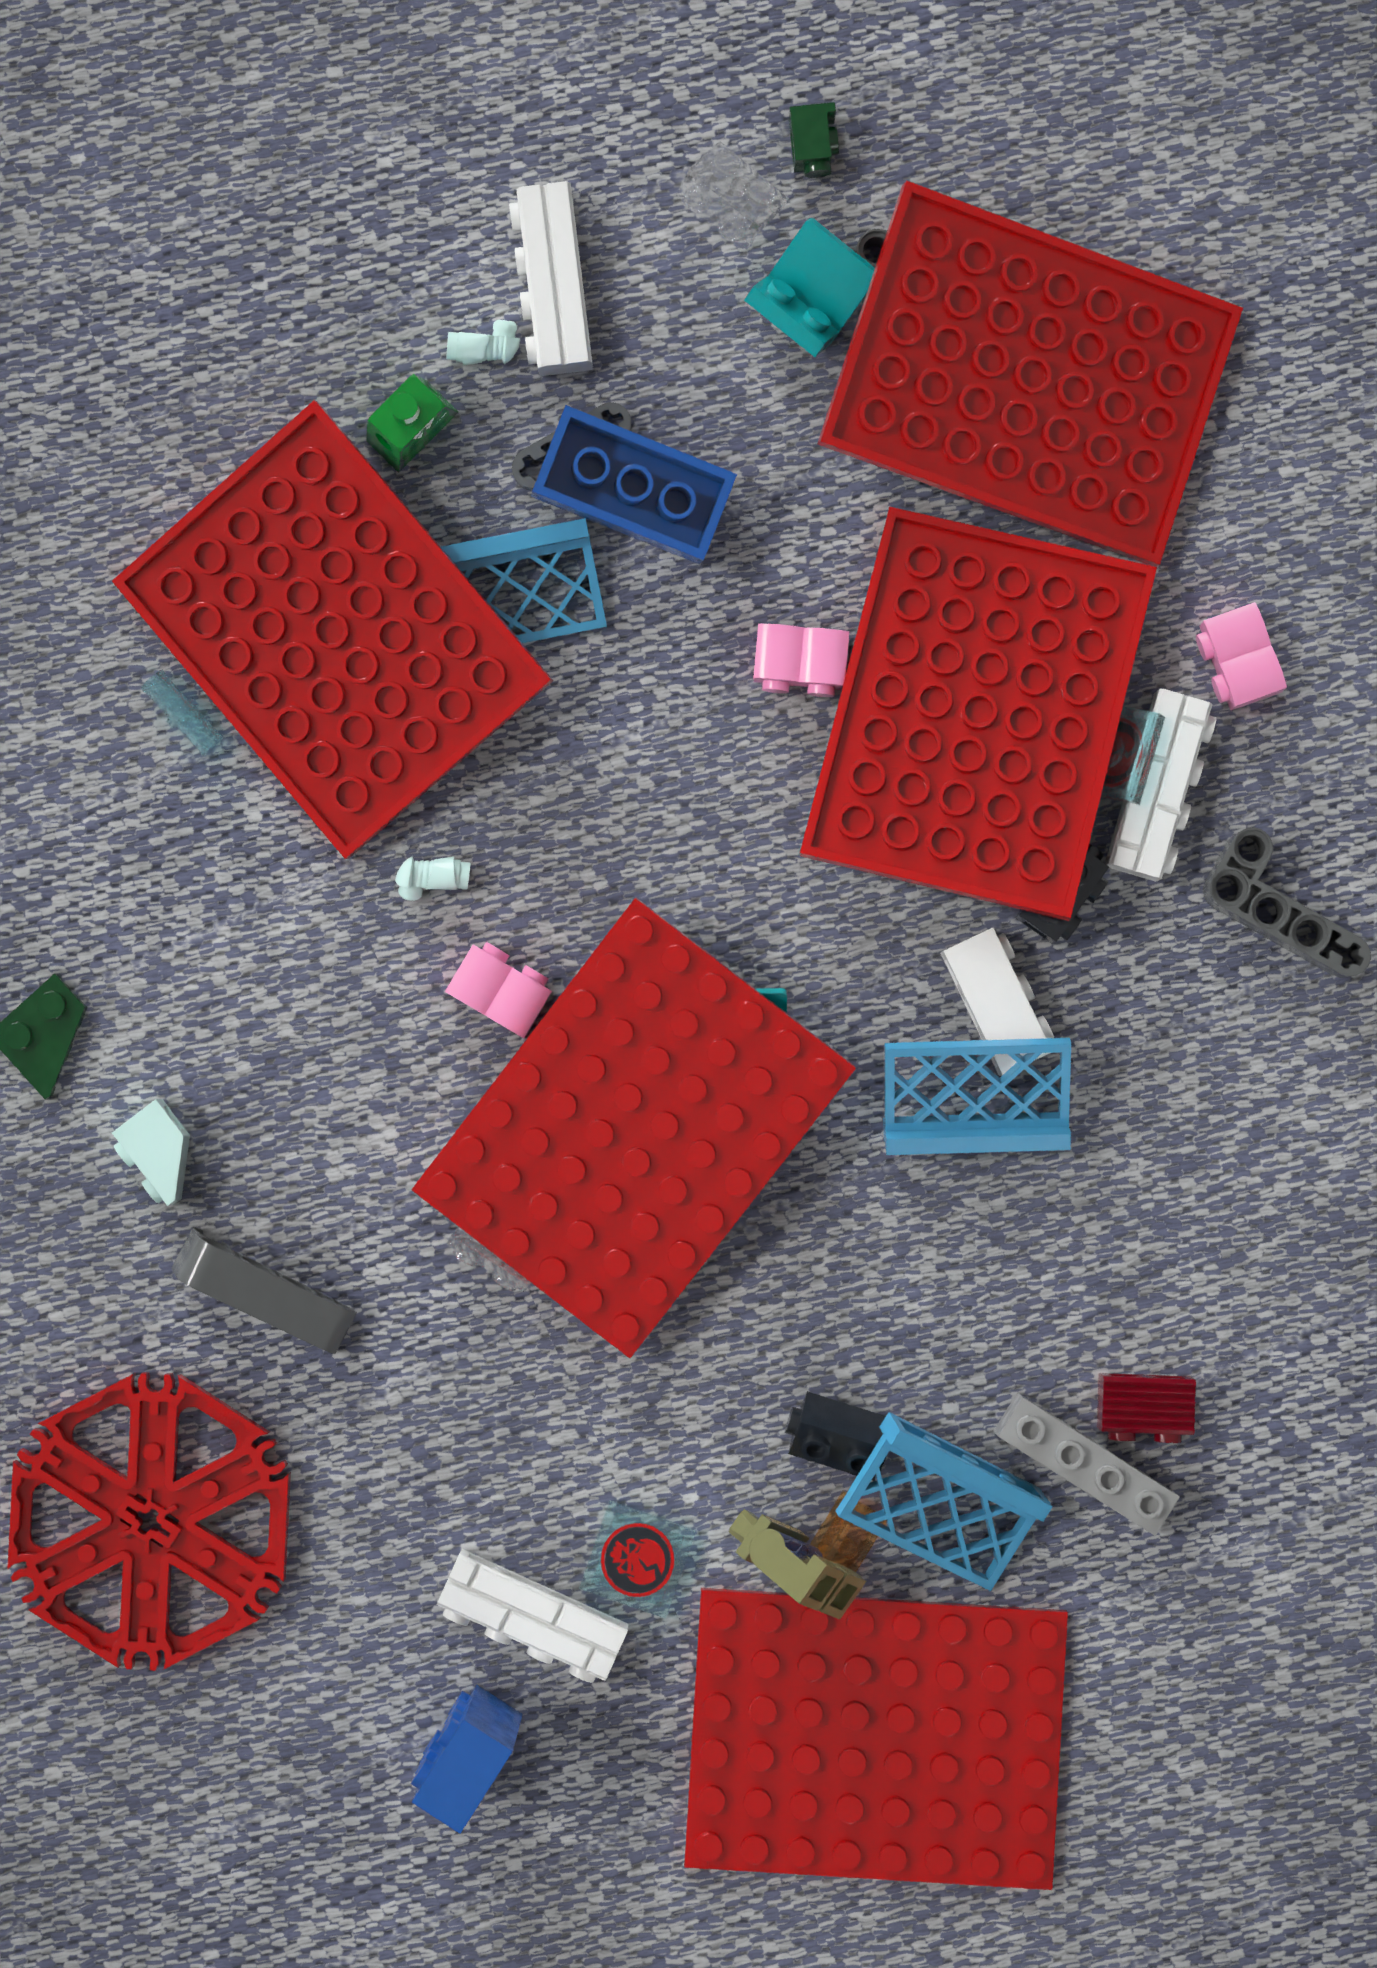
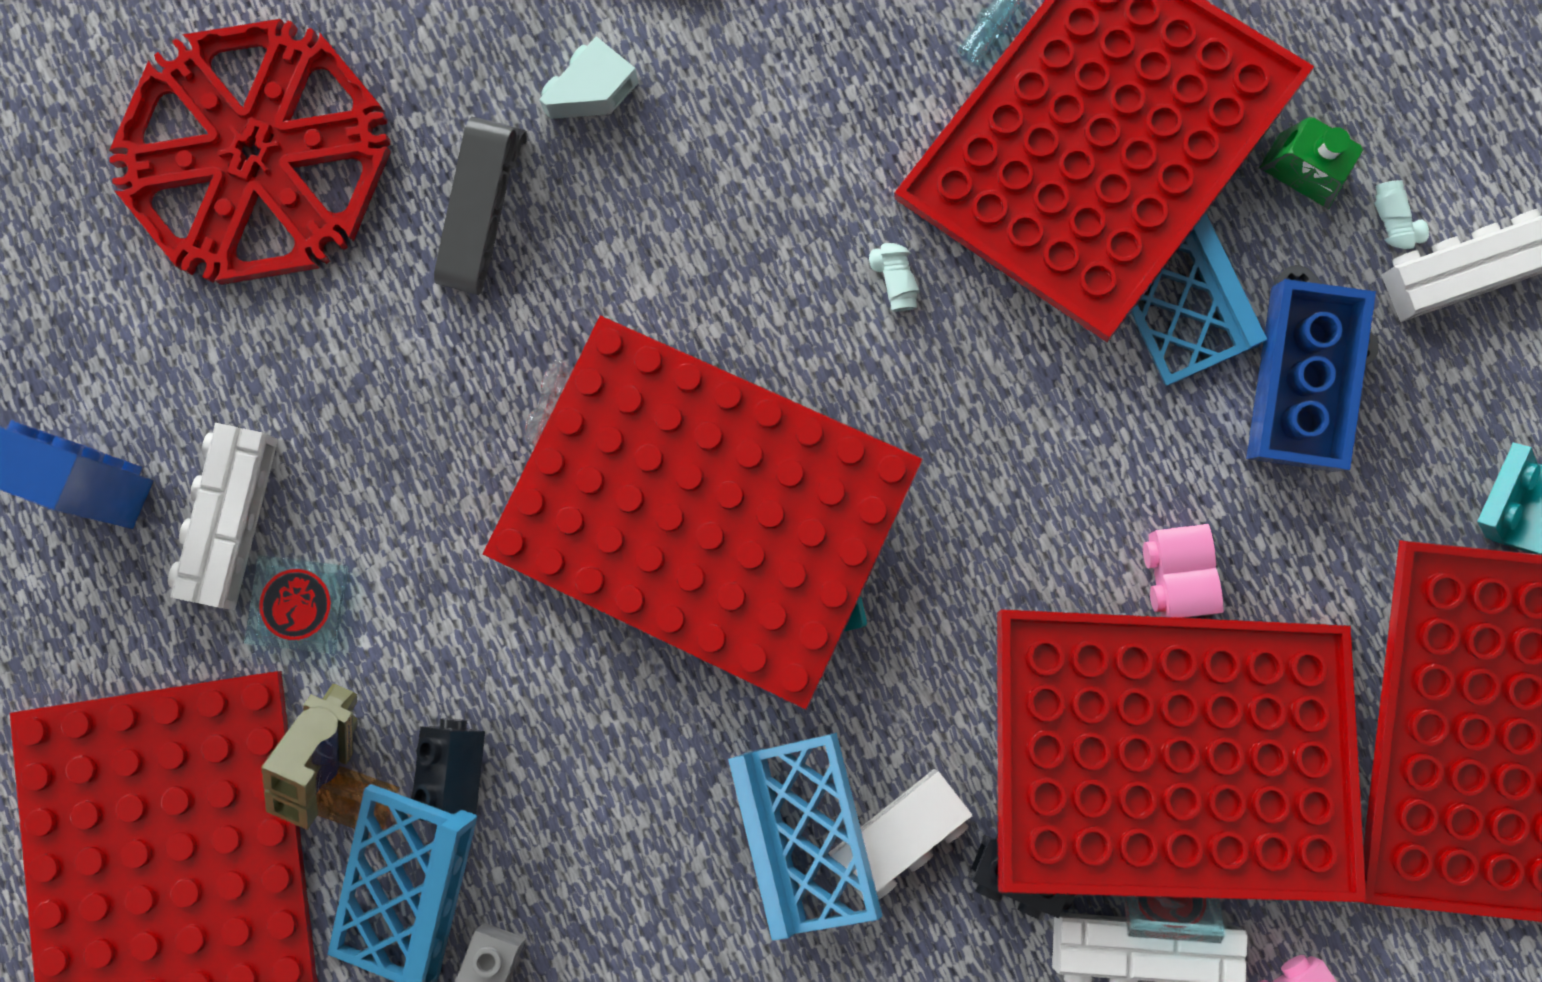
camera: 75 degrees right, 5 degrees down
(499, 990) = (804, 358): bright pink brick -> none

